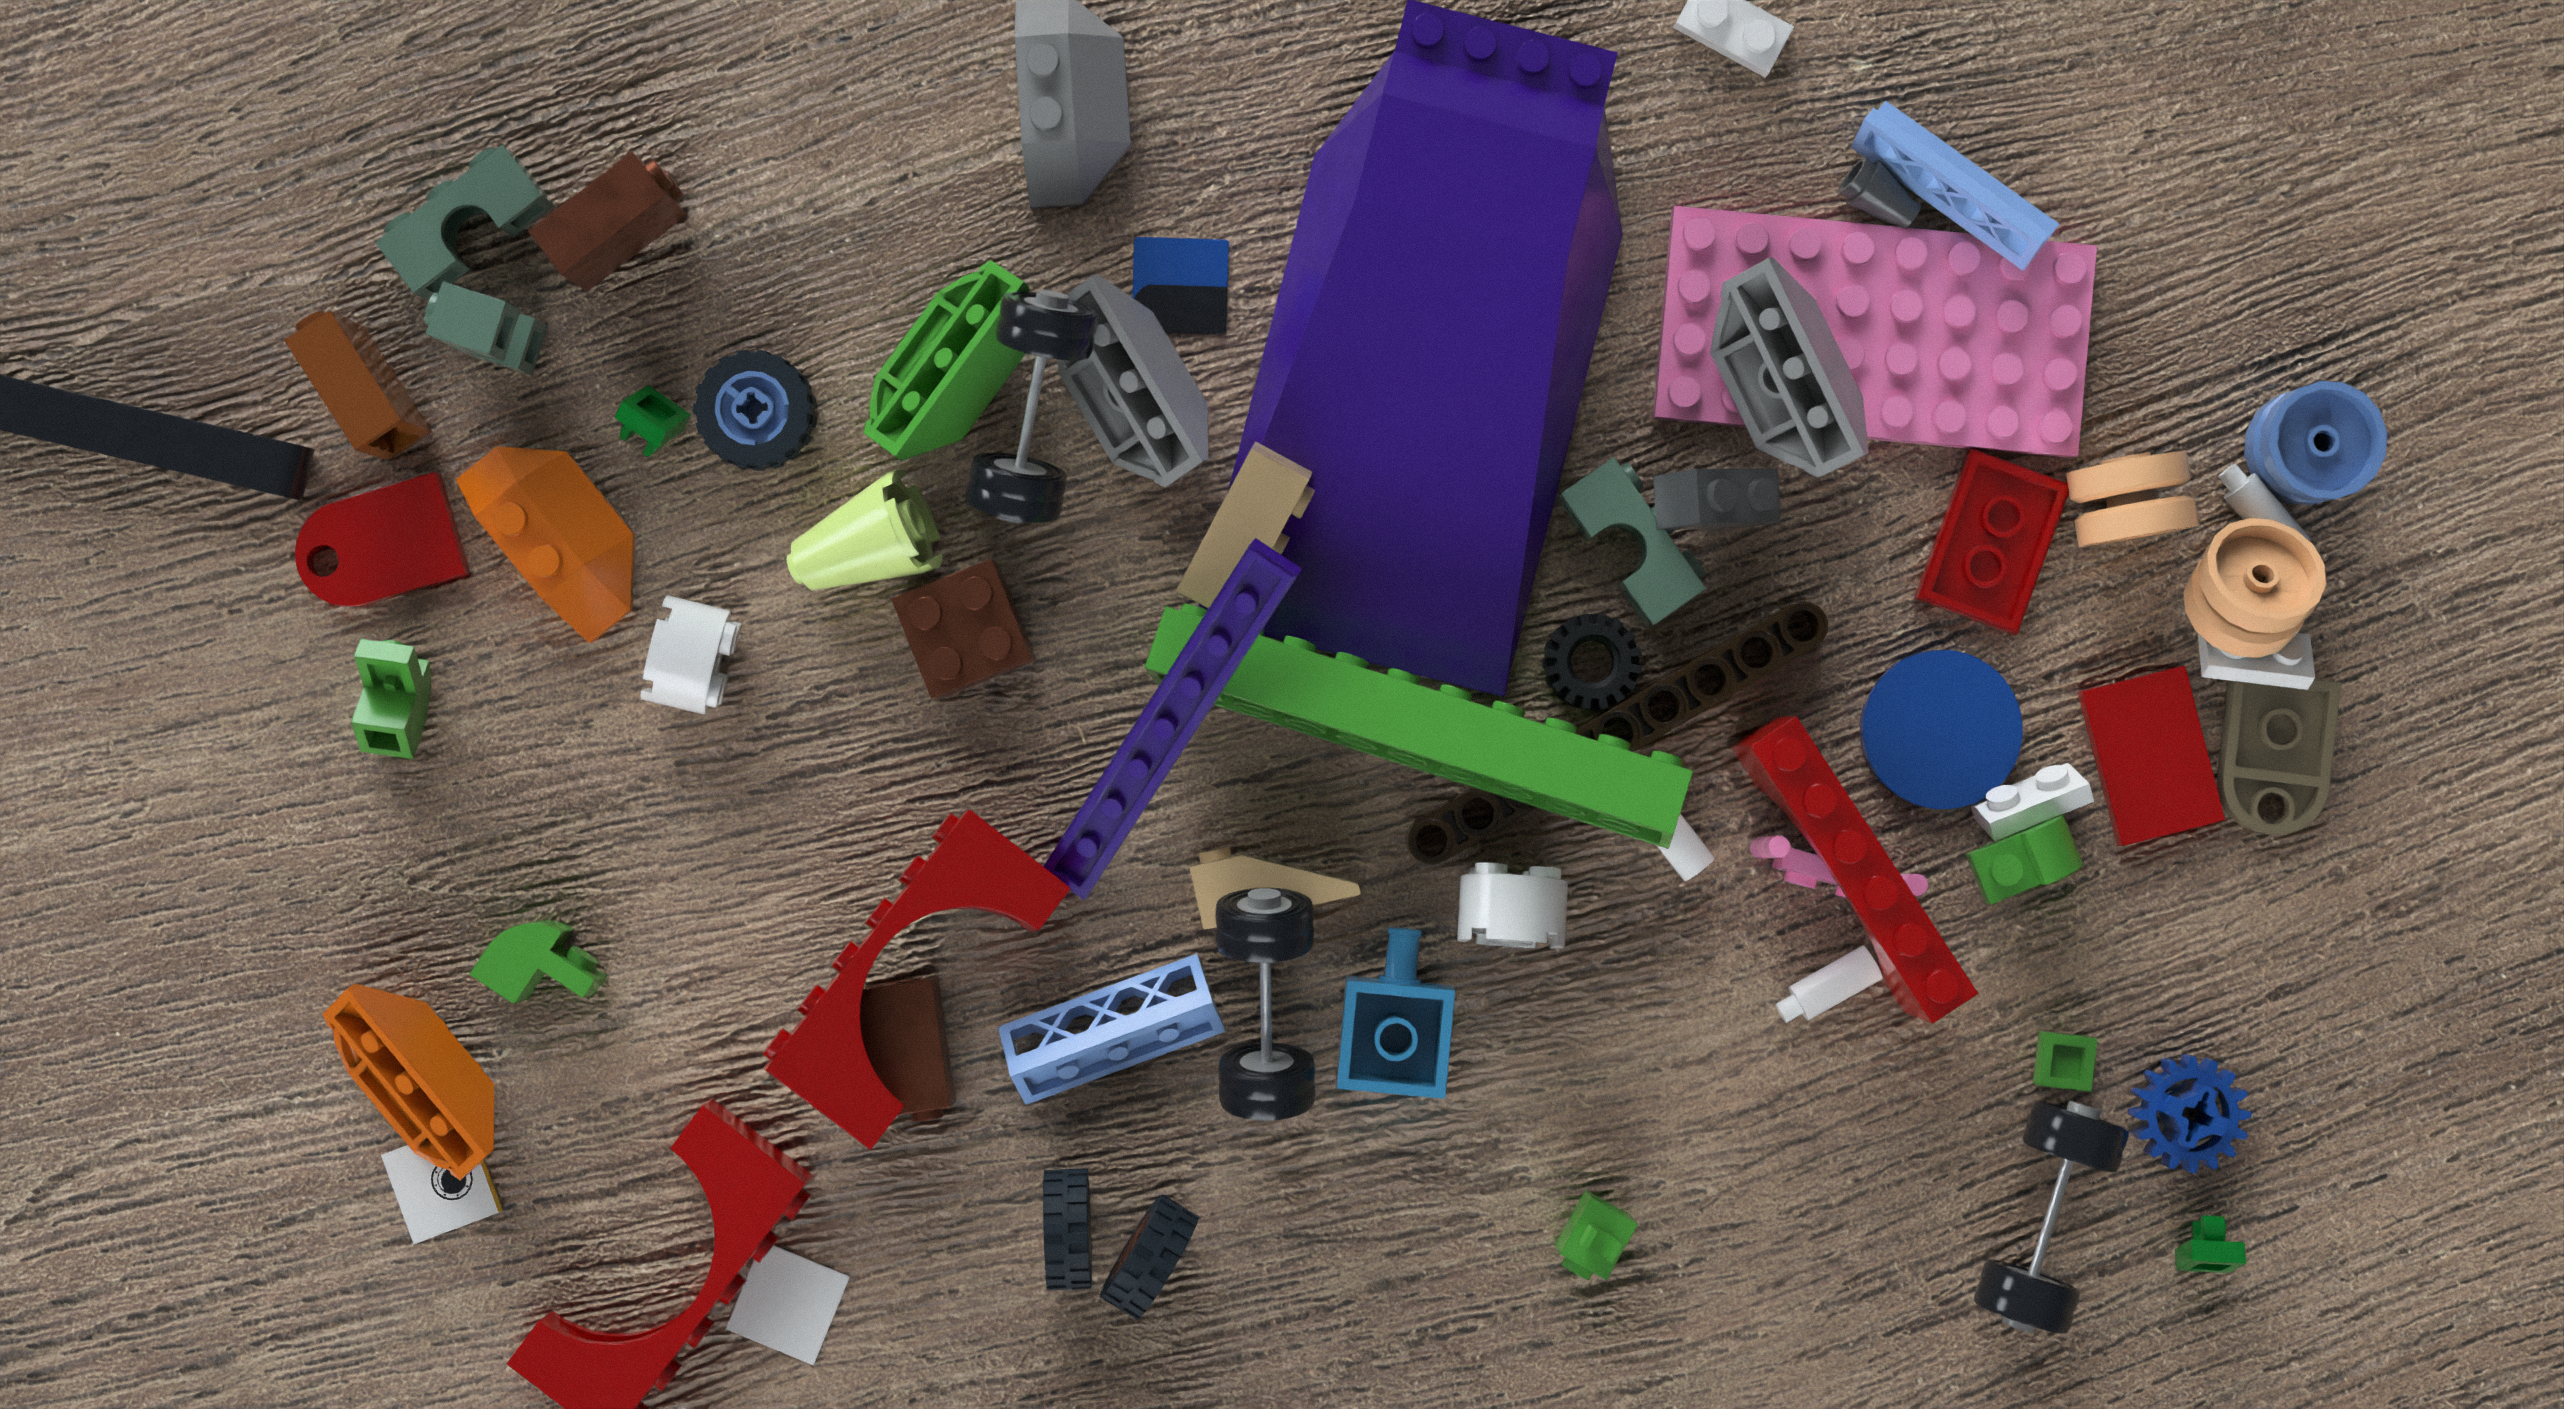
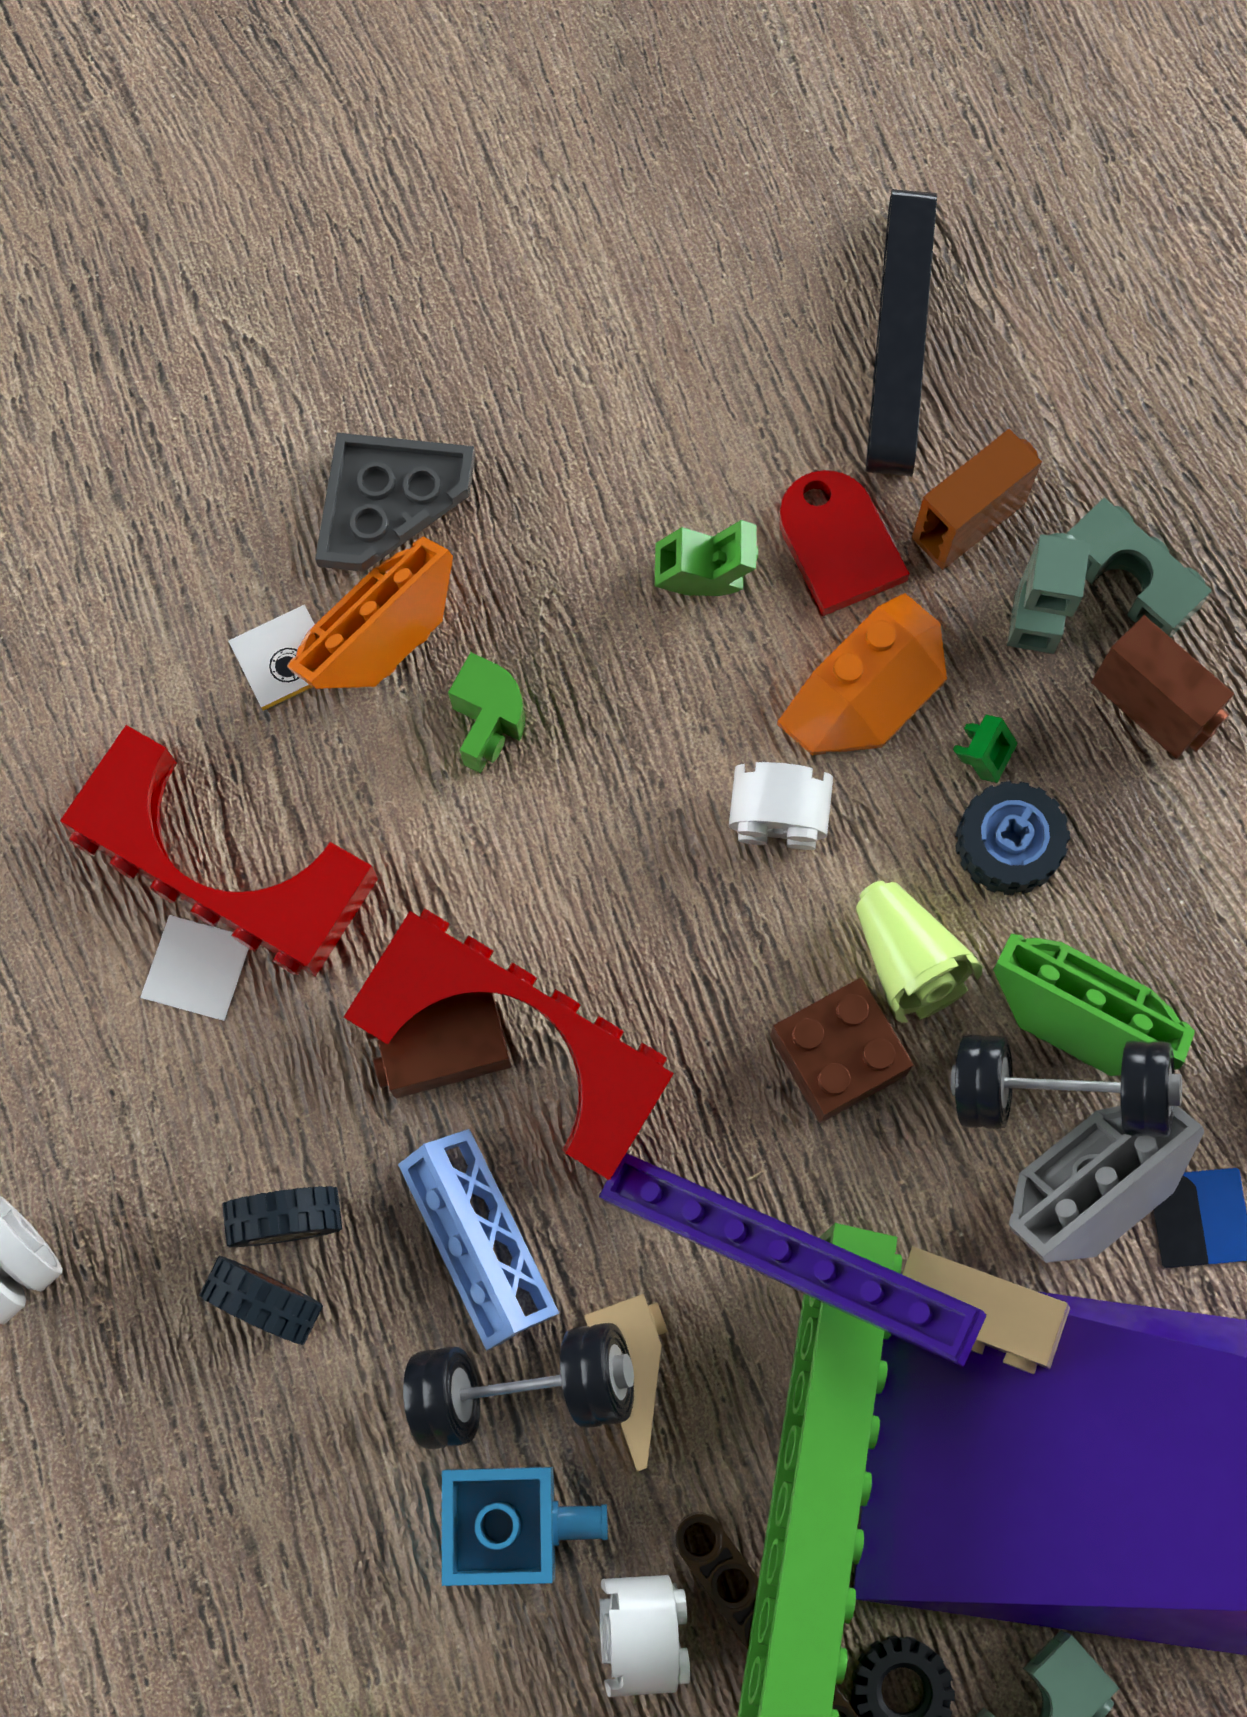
camera: 85 degrees right, 15 degrees down
(259, 1050) = (386, 494): none -> dark grey plate

